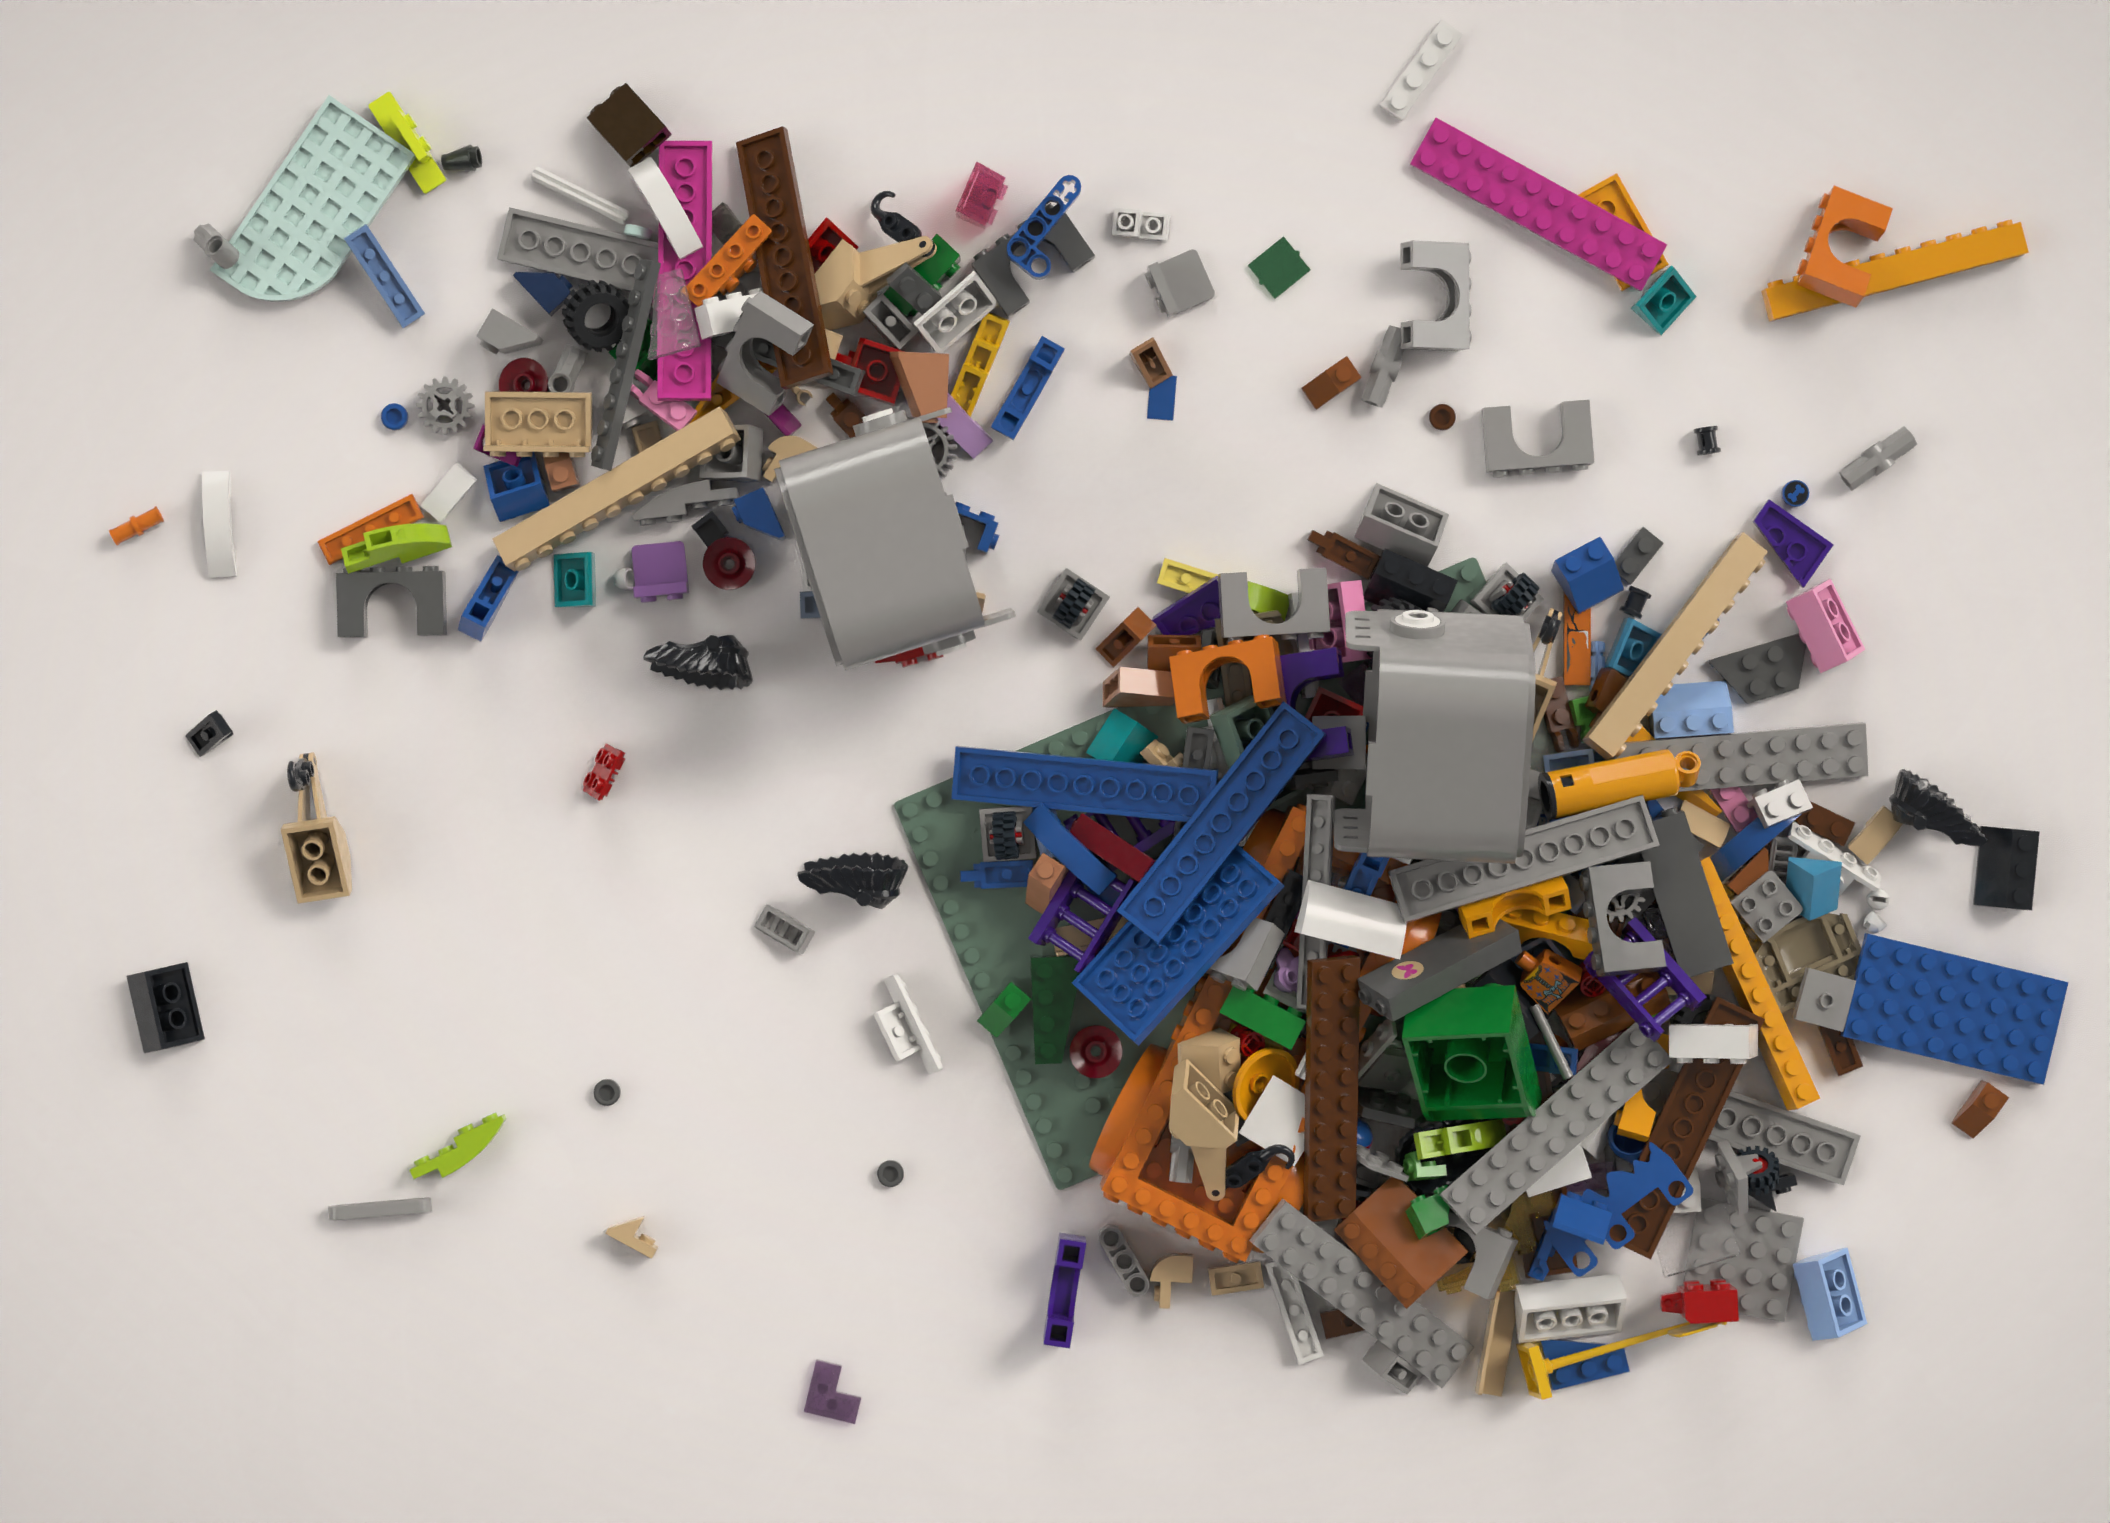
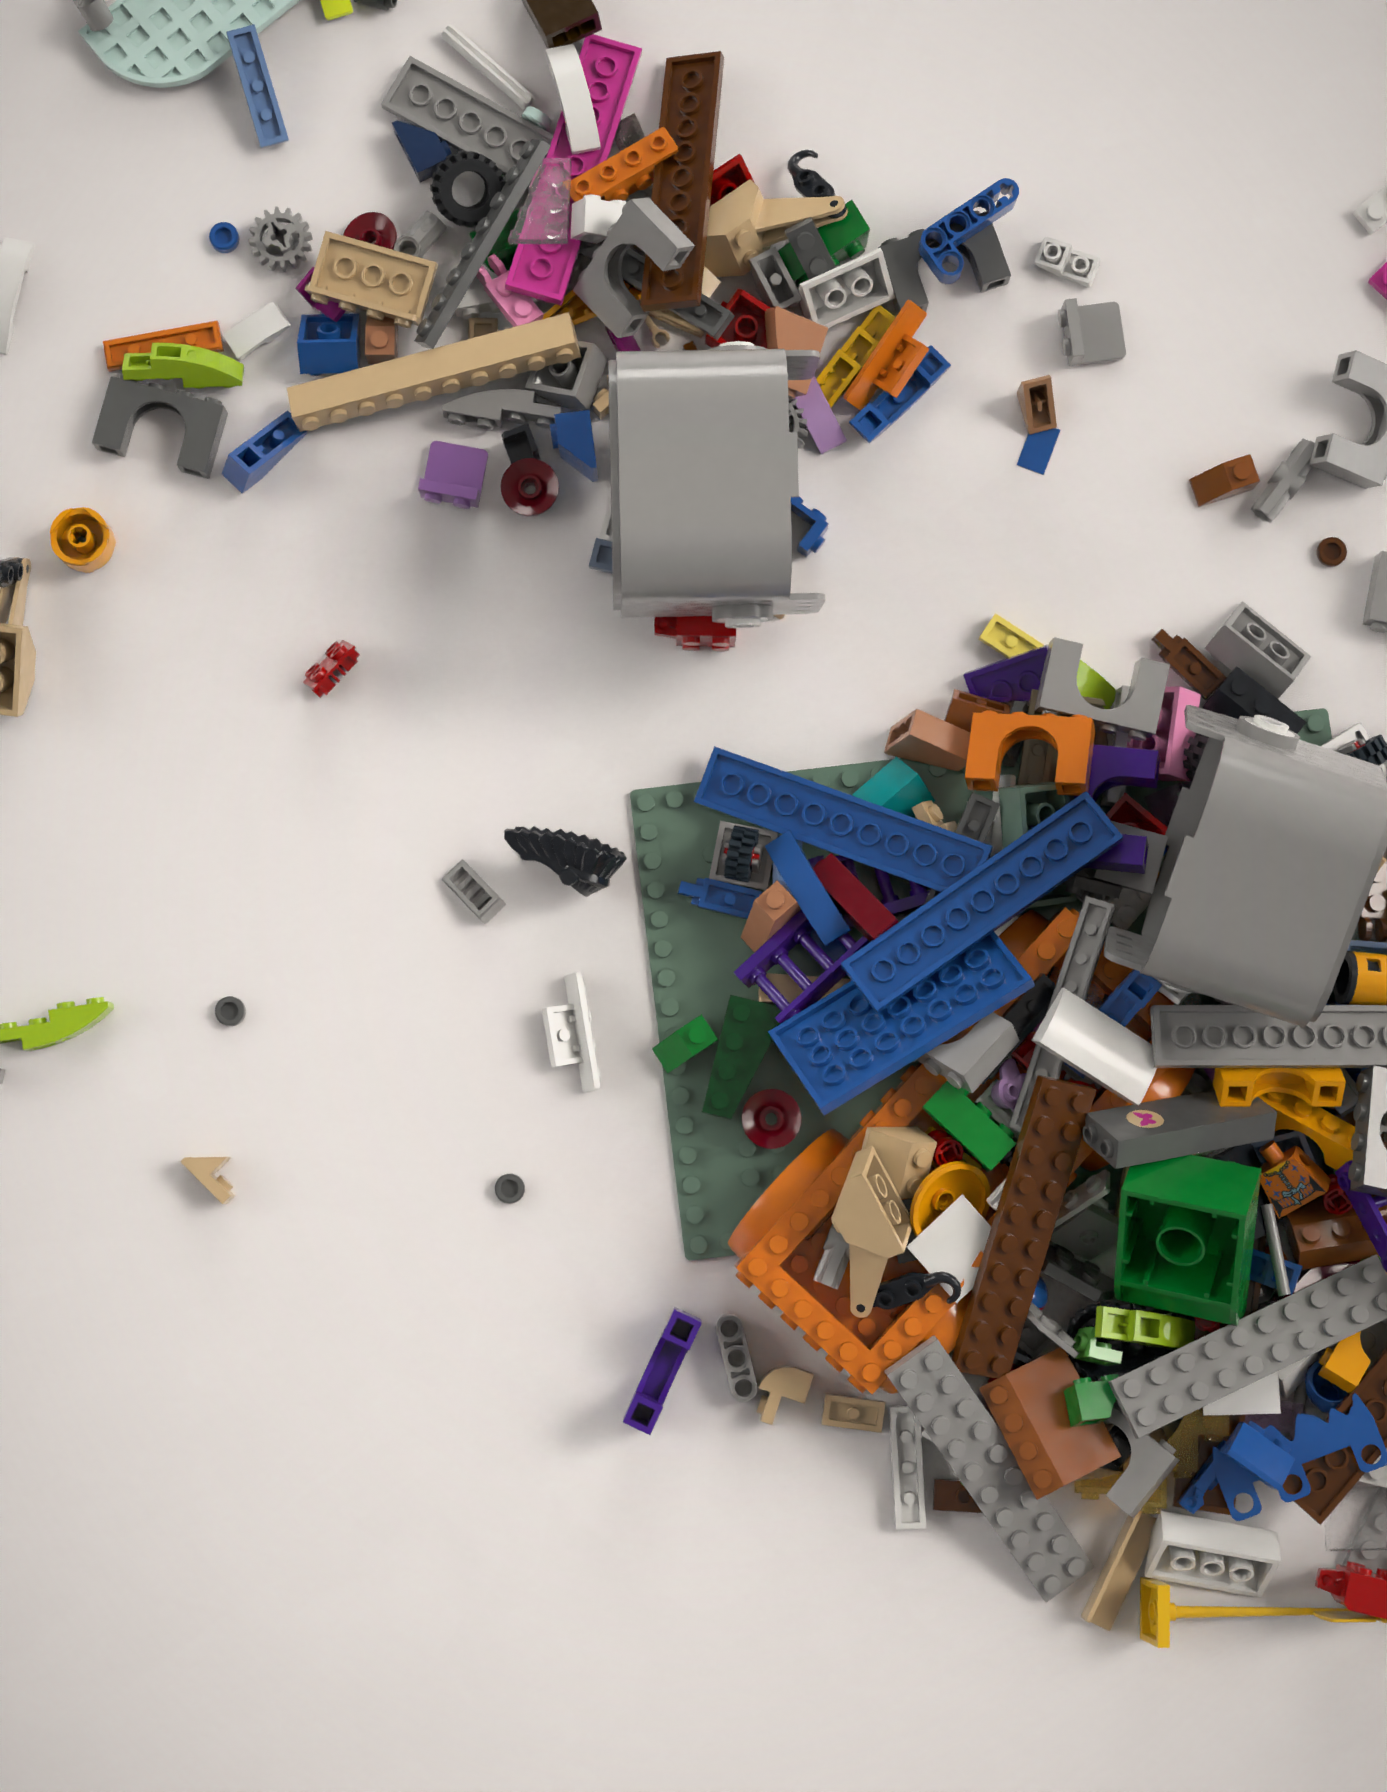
camera: 10 degrees right, 5 degrees down
(341, 729) = (86, 523): none -> light orange brick
(506, 335) = (366, 182): light grey slope -> none
(574, 580) = (362, 458): teal slope -> none
(624, 578) = (414, 471): white hinge -> none
(713, 662) = (479, 582): black piece -> none
(824, 1398) = (365, 1416): clear purple plate -> none
(981, 196) = (907, 181): clear pink slope -> none
(1012, 361) = (891, 360): none -> orange bracket
(1073, 604) = (883, 634): light grey plate -> none
(1126, 637) = (929, 684): dark orange slope -> none
(1279, 267) = (1200, 348): clear green piece -> none
(1392, 1367) = (998, 1562): light grey slope -> none
(1584, 1371) = (1210, 1629): blue wing -> none

